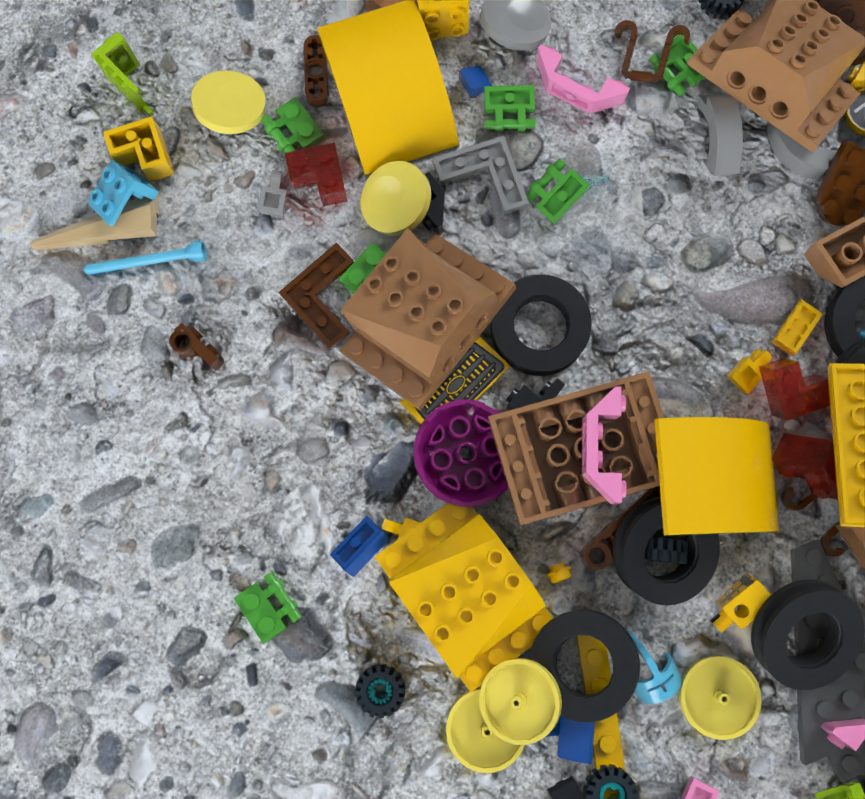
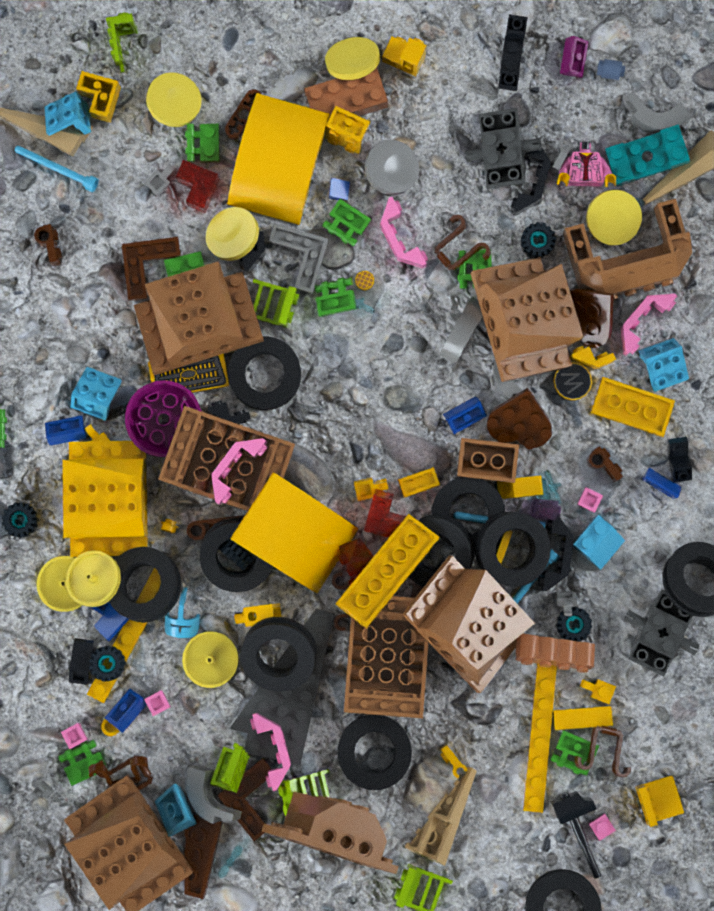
camera: 35 degrees right, 5 degrees up
(365, 479) = (94, 393): none -> medium azure bracket
(509, 237) = (283, 313): none -> lime plate
(573, 155) = (364, 280): none -> tile
(786, 222) = (465, 415): none -> blue slope

